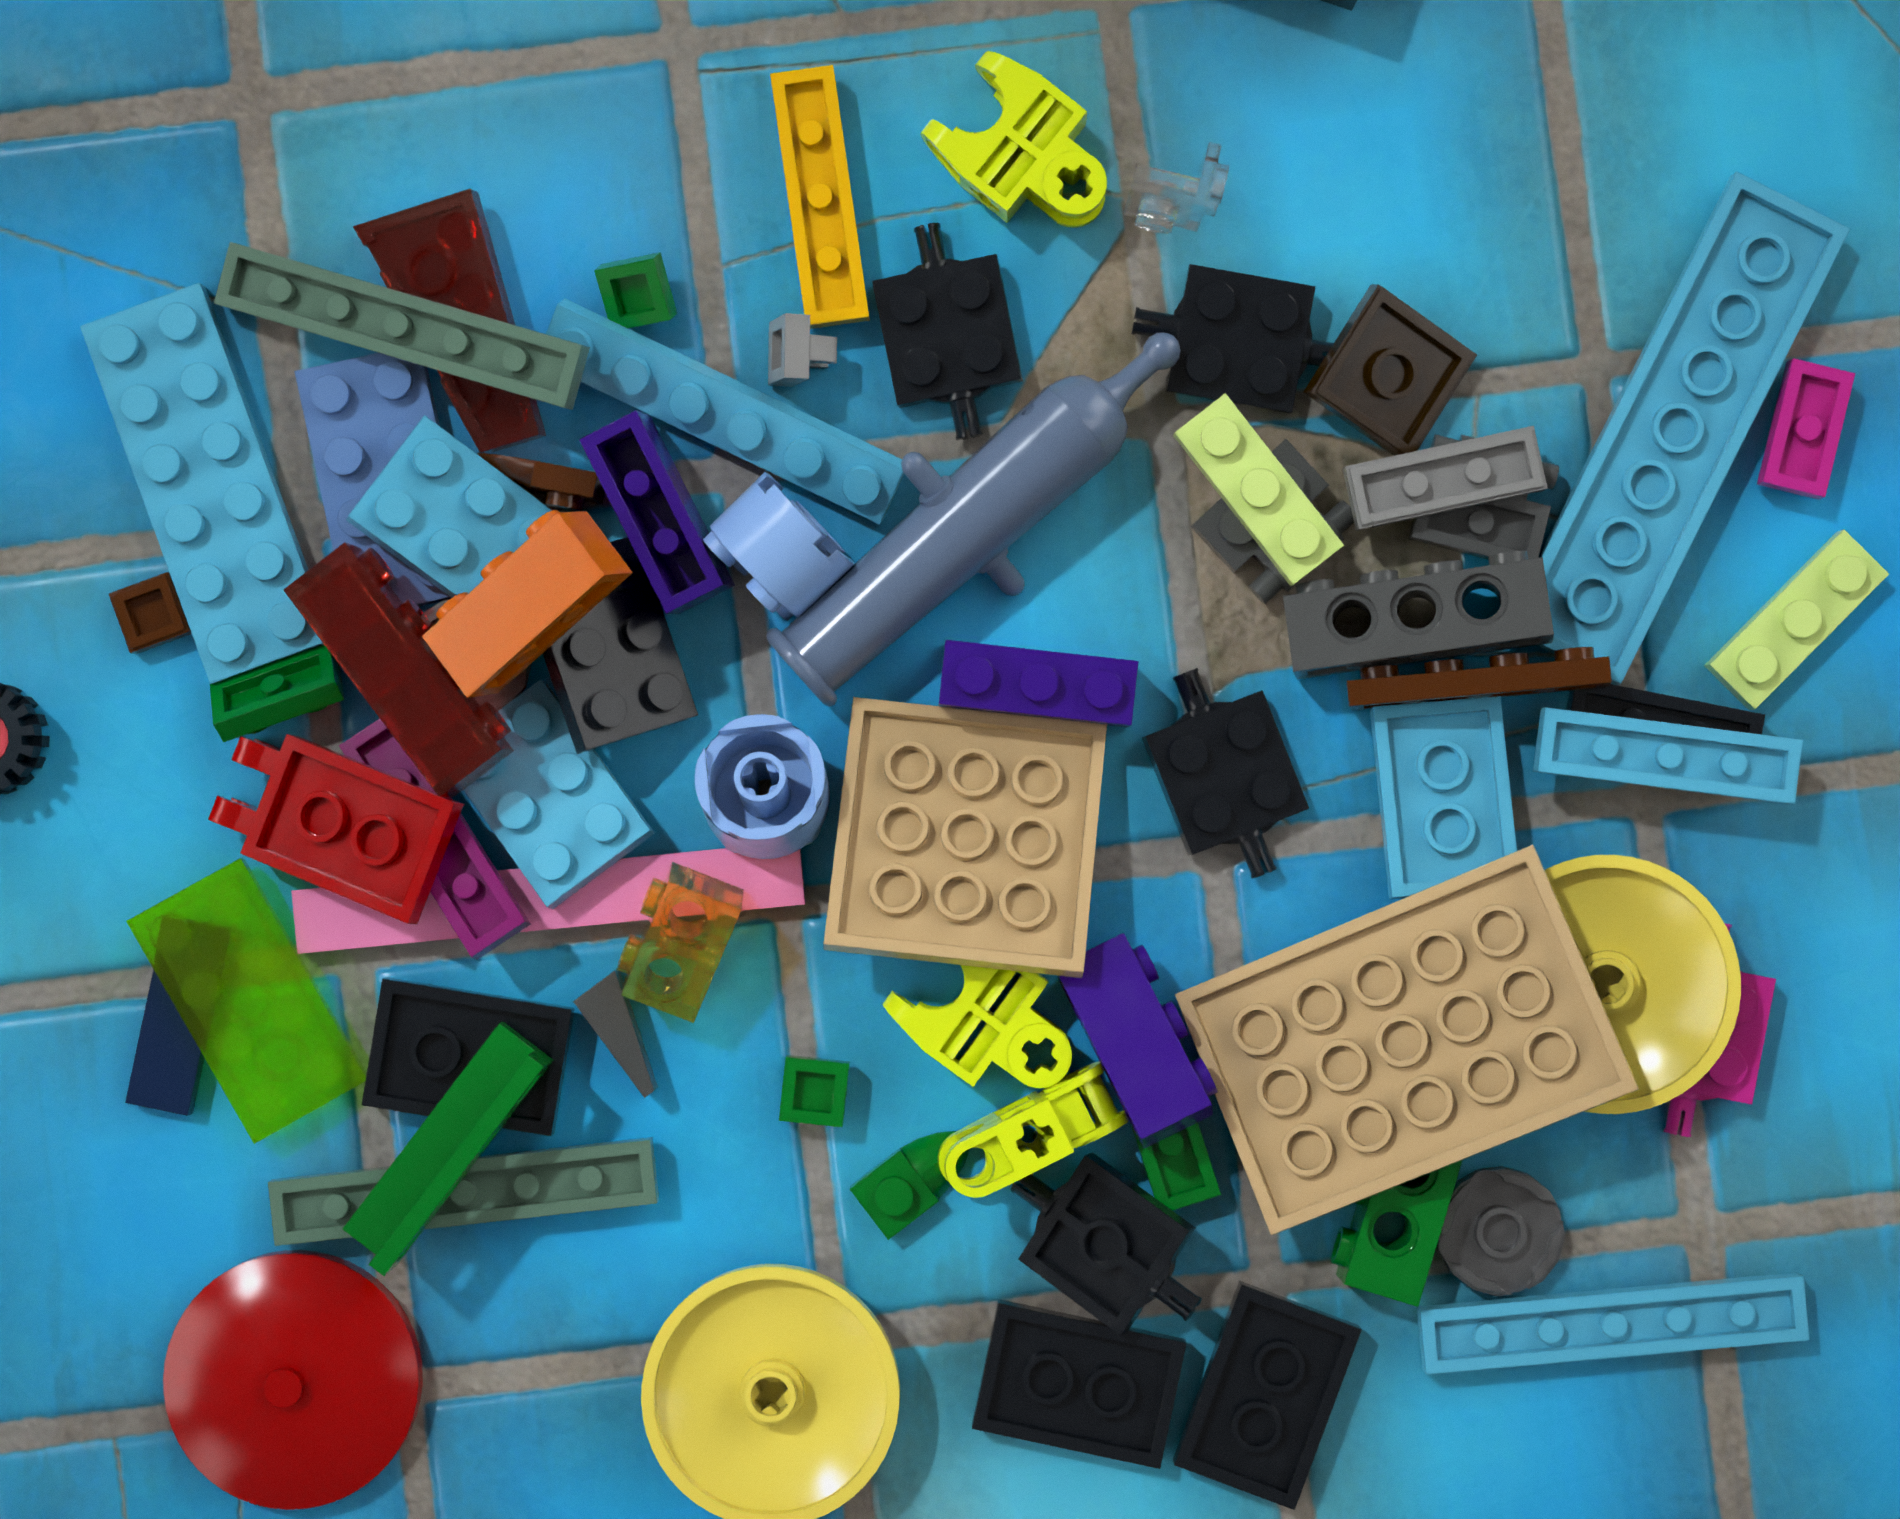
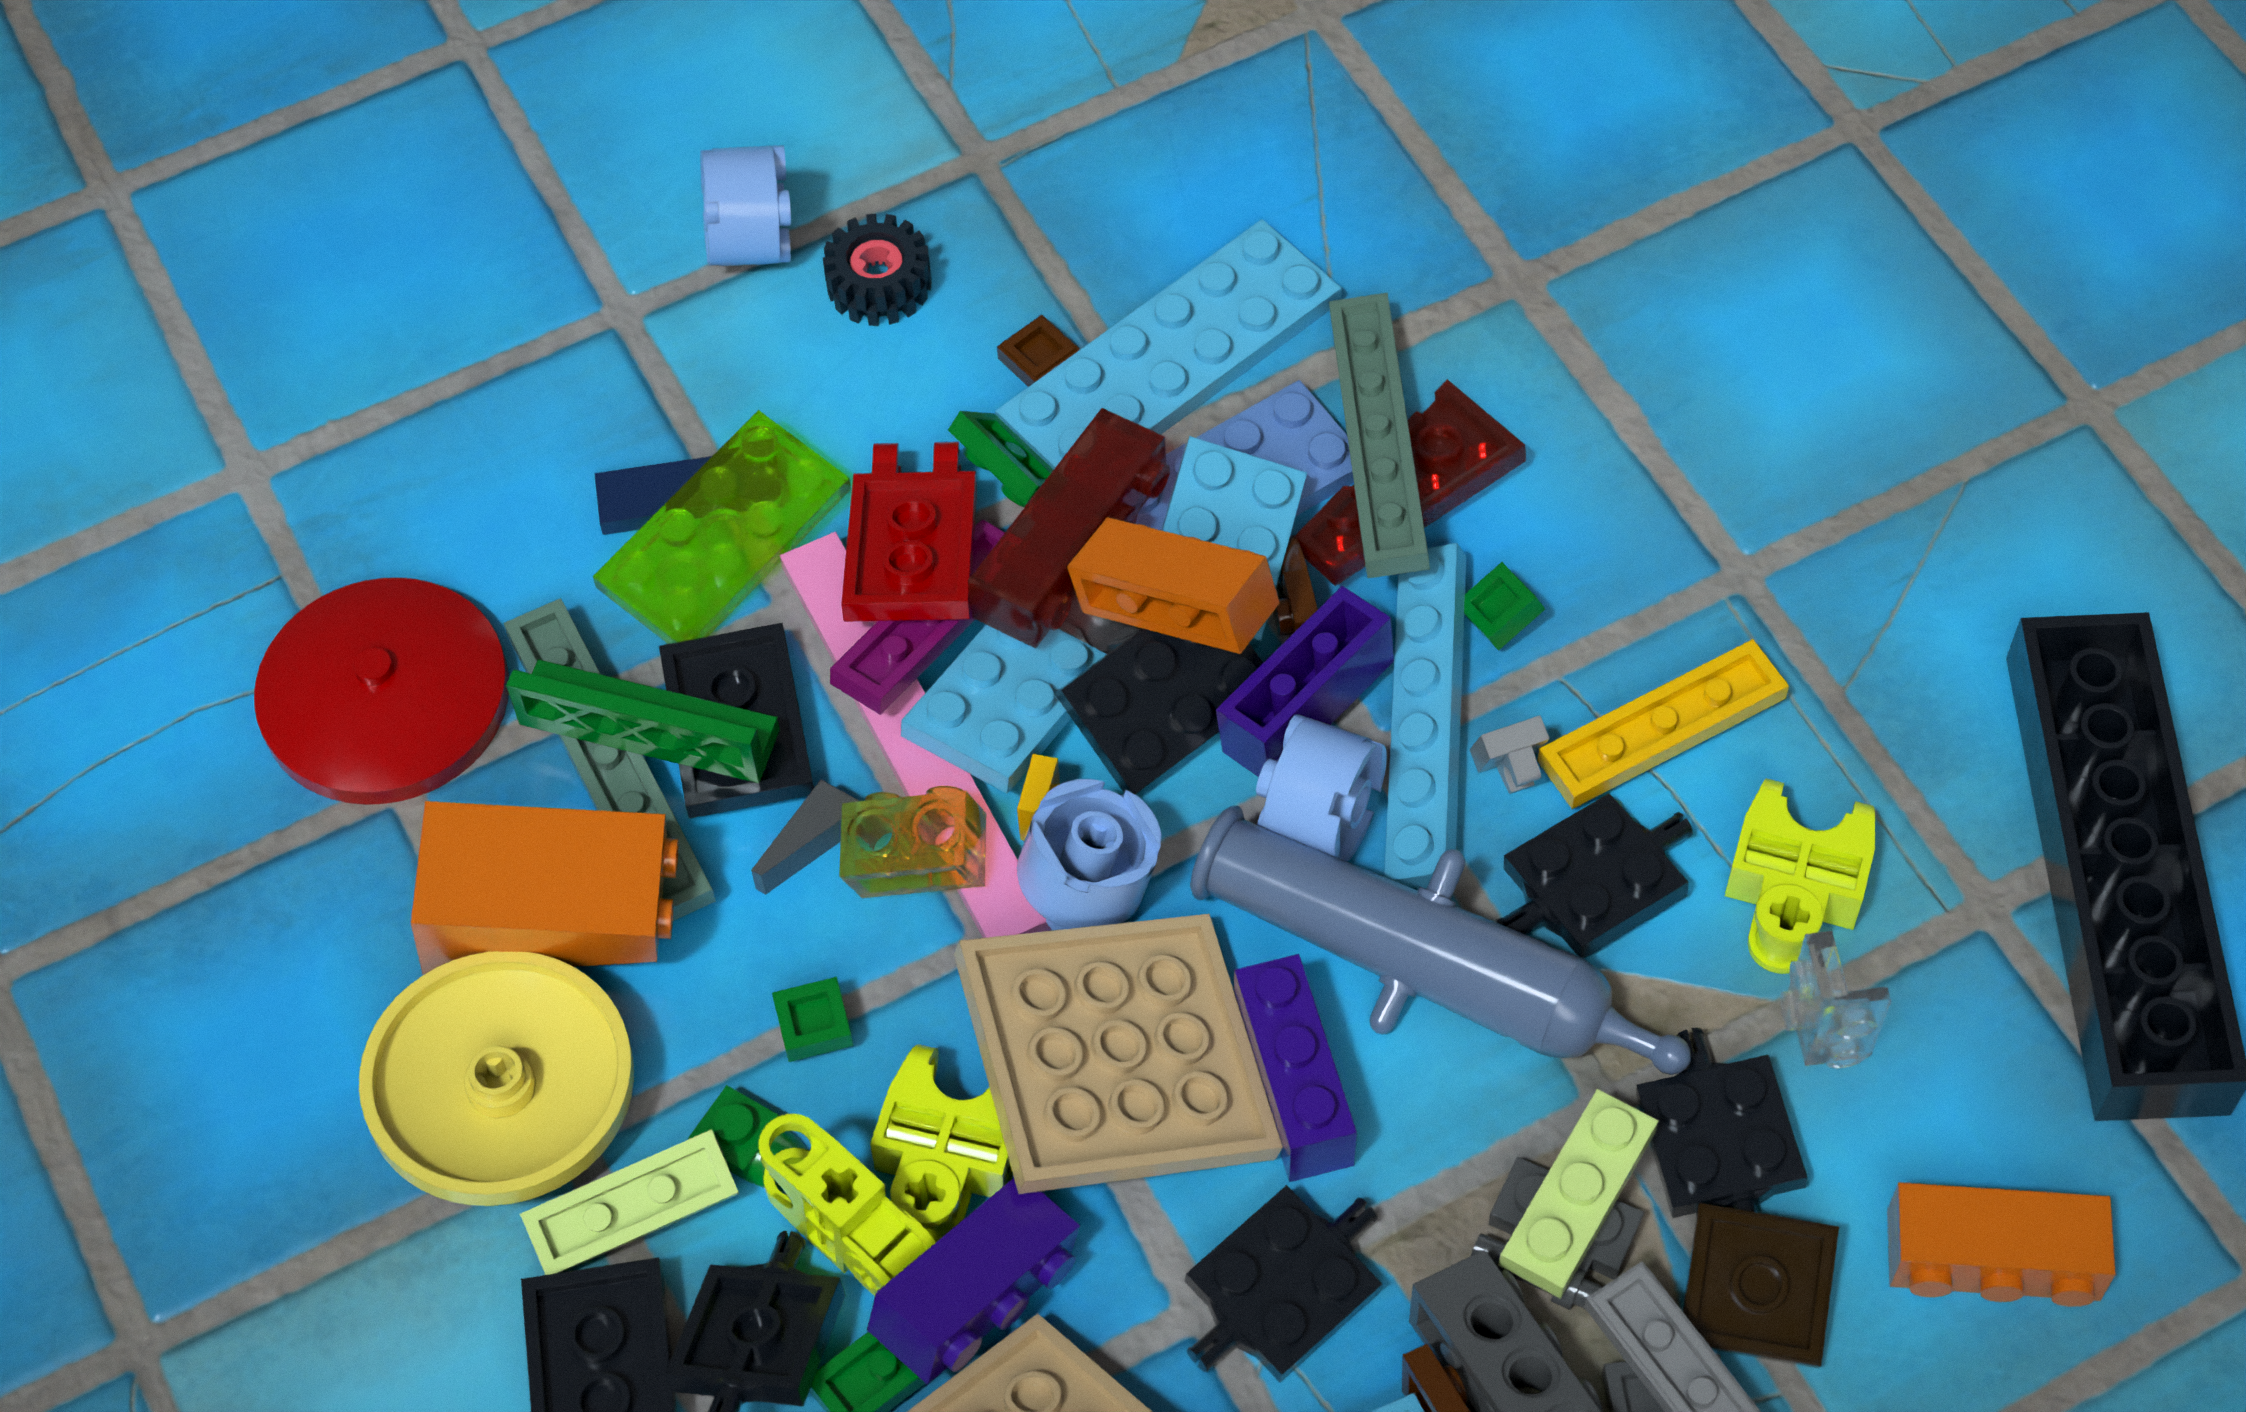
camera: 70 degrees right, 30 degrees down
(602, 1300) = (542, 884): none -> orange slope
(673, 802) = (1040, 779): none -> yellow plate
(935, 1311) = (629, 1203): none -> yellowish green plate
(1438, 152) = (2000, 1243): none -> orange brick

